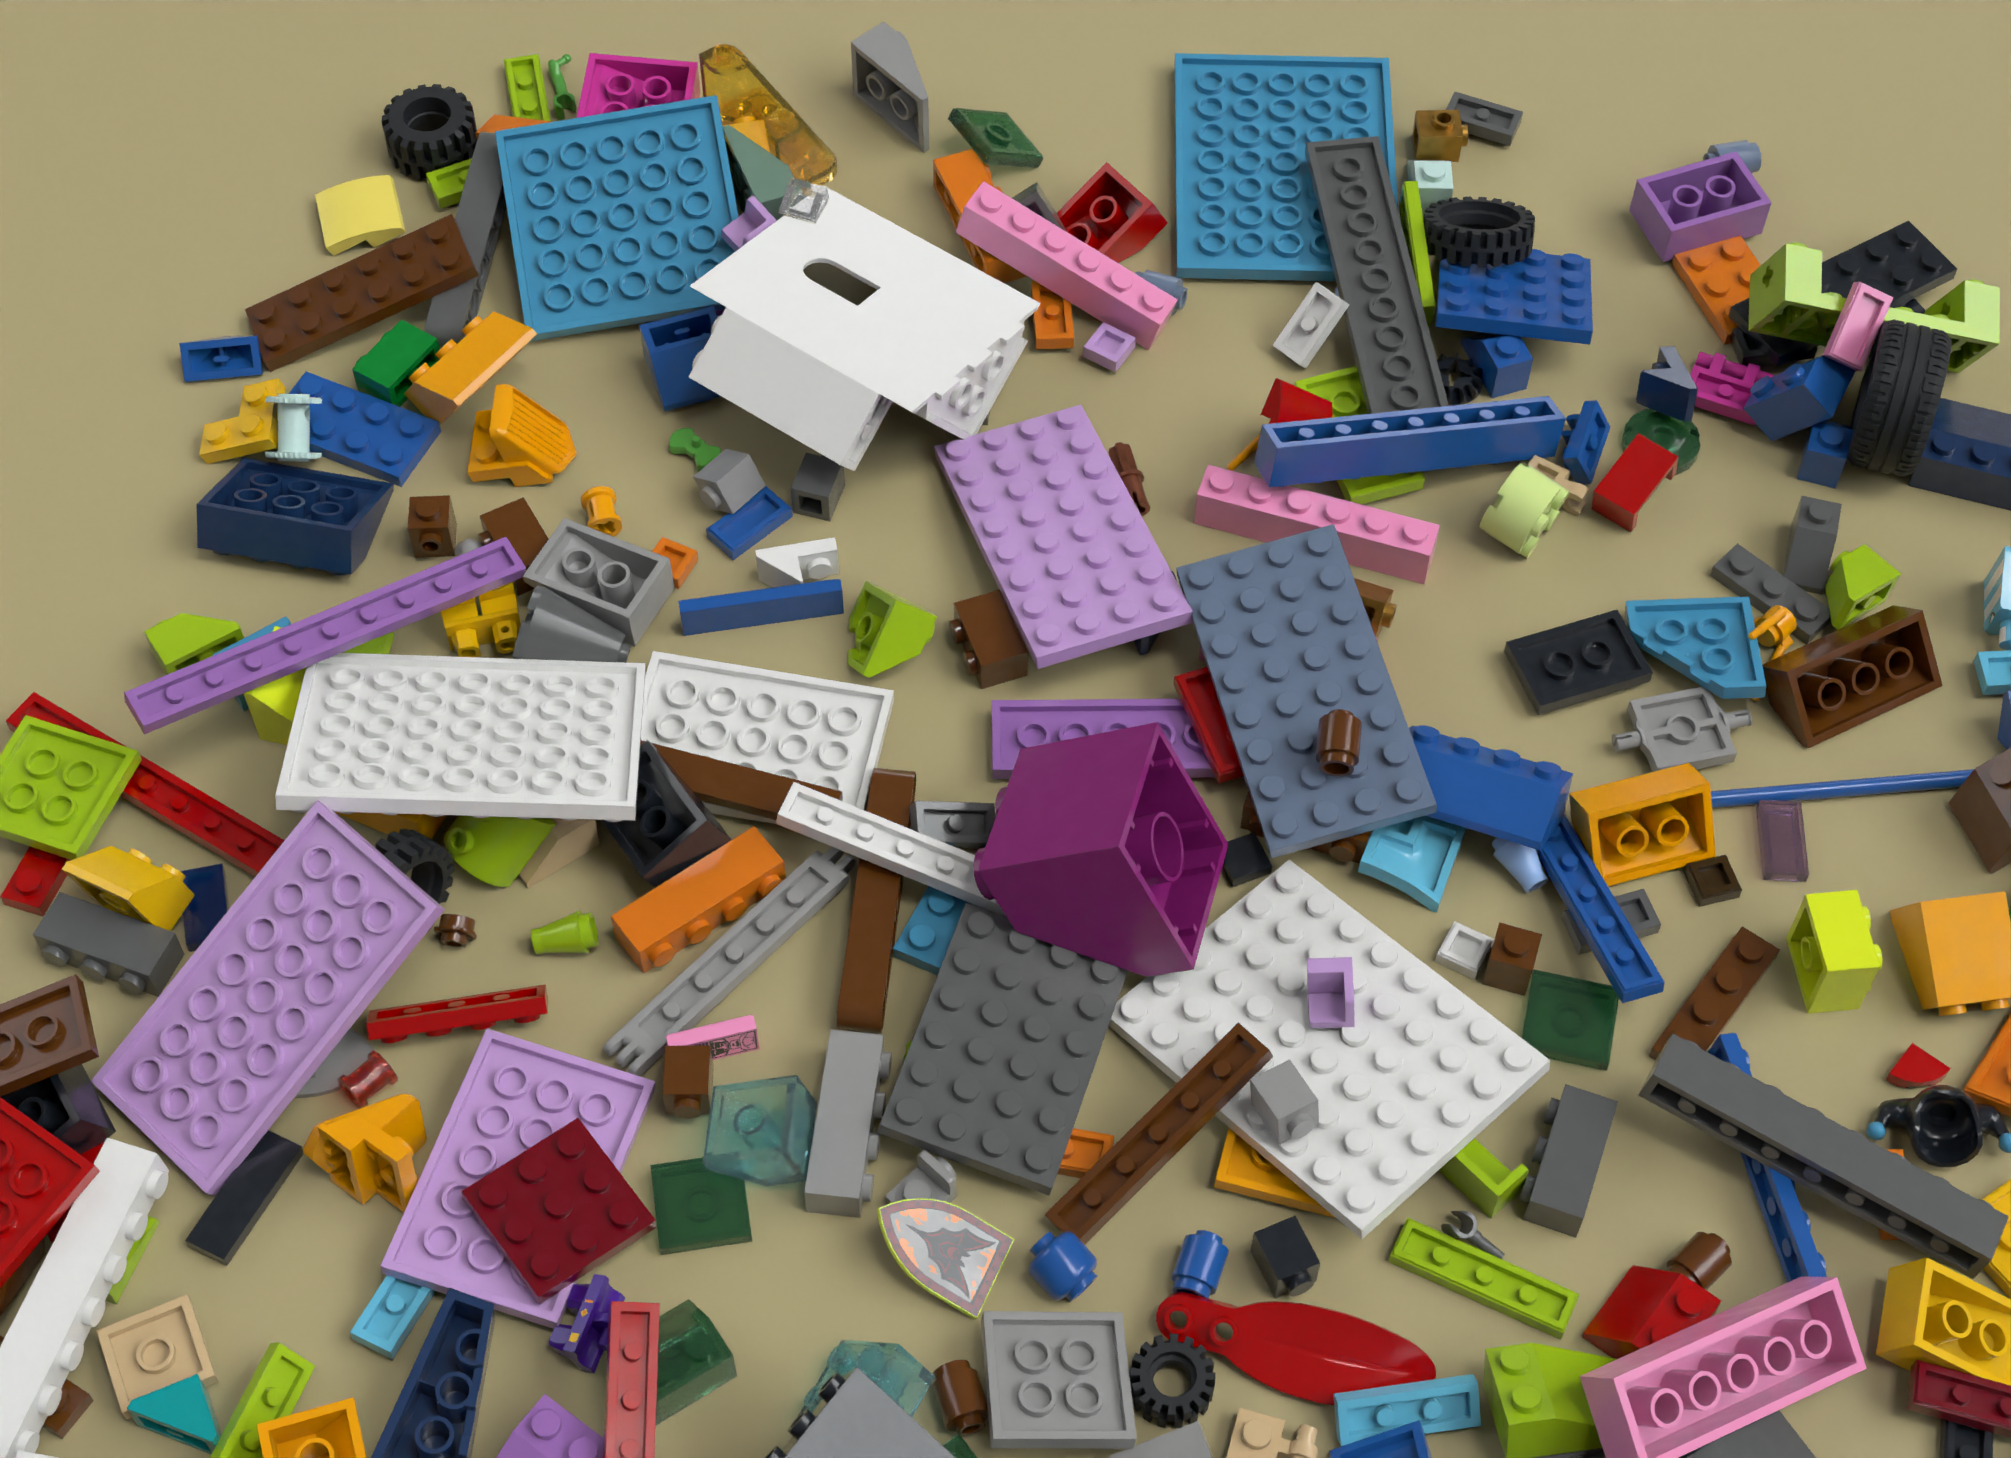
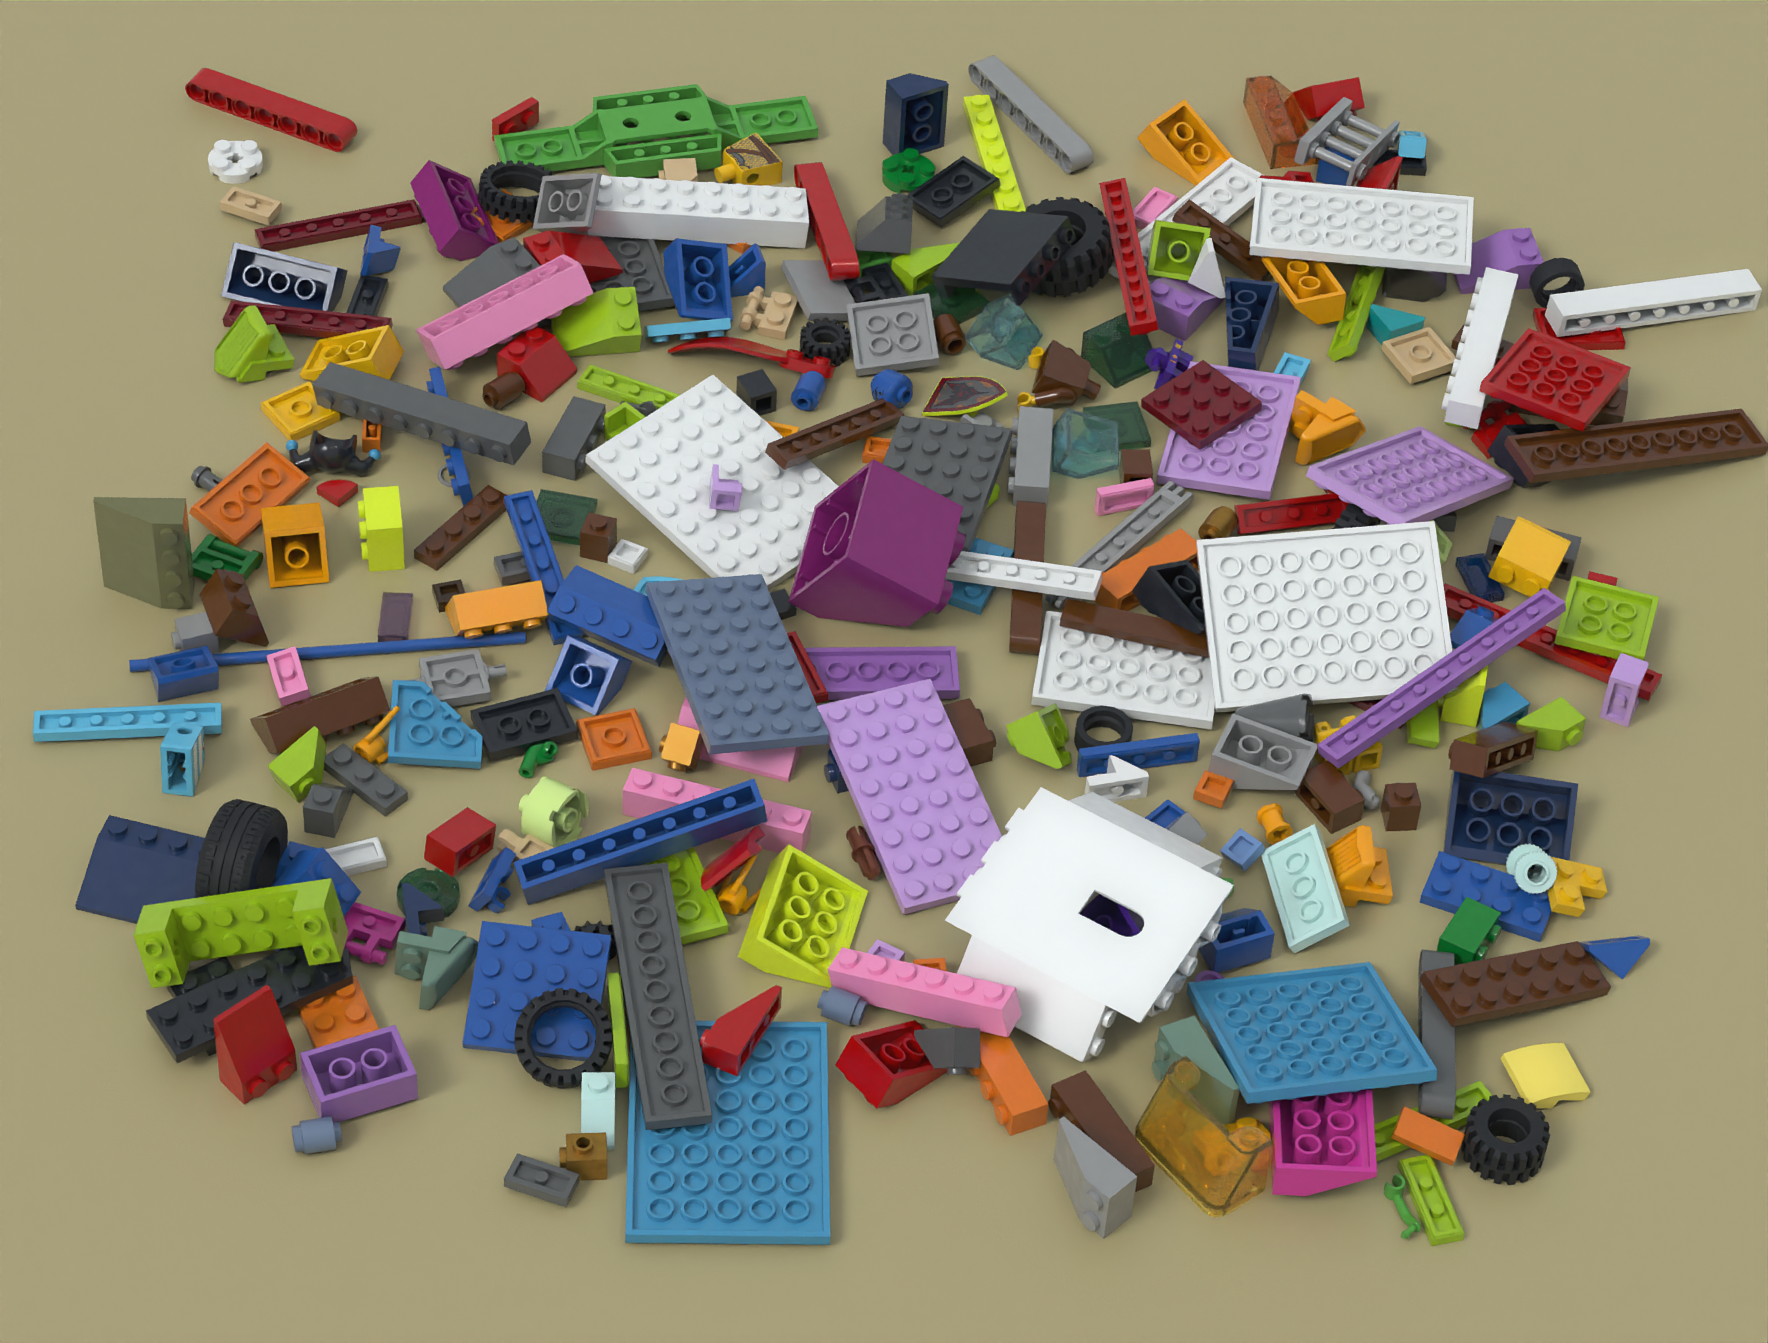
camera: 175 degrees right, 10 degrees down
(79, 667) = (1623, 689): none -> lavender panel
(244, 1198) = (1401, 418): black tile -> none
(252, 767) = (1471, 624): none -> blue slope
(292, 555) = (1493, 749): none -> reddish brown brick
(467, 365) = (1404, 912): light orange slope -> none
(578, 985) = (1218, 524): none -> pearl gold brick
(585, 412) = (1304, 888): none -> light aqua plate
(650, 476) = (1242, 849): none -> medium blue plate
(748, 225) = (1192, 1001): lavender panel -> none
(782, 1283) = (1059, 377): none -> reddish brown torso
(798, 616) = (1102, 717): none -> black tyre
(804, 200) = (1153, 991): clear slope -> none
(877, 151) = (1090, 1111): none -> reddish brown brick
(954, 822) = (980, 611): dark grey plate -> none
(995, 138) = (993, 1141): clear green tile -> none
(1206, 390) = (801, 918): none -> neon yellow slope
(1278, 233) = (739, 1032): none -> red slope
(1284, 1102) = (758, 425): light grey brick -> none
(1311, 325) = (713, 964): white plate -> none
(1338, 743) = (715, 599): reddish brown brick -> none
(1455, 651) = (613, 739): none -> orange tile
(1501, 725) = (588, 674): none -> blue slope
(1560, 614) = (536, 756): none -> green arm
(1639, 322) = (435, 960): none -> sand green piece
(1763, 488) = (359, 856): none -> white tile
(1830, 217) = (253, 1046): none -> red slope
(1857, 326) = (269, 879): bright pink tile -> none
(1908, 734) = (288, 676): none -> bright pink plate

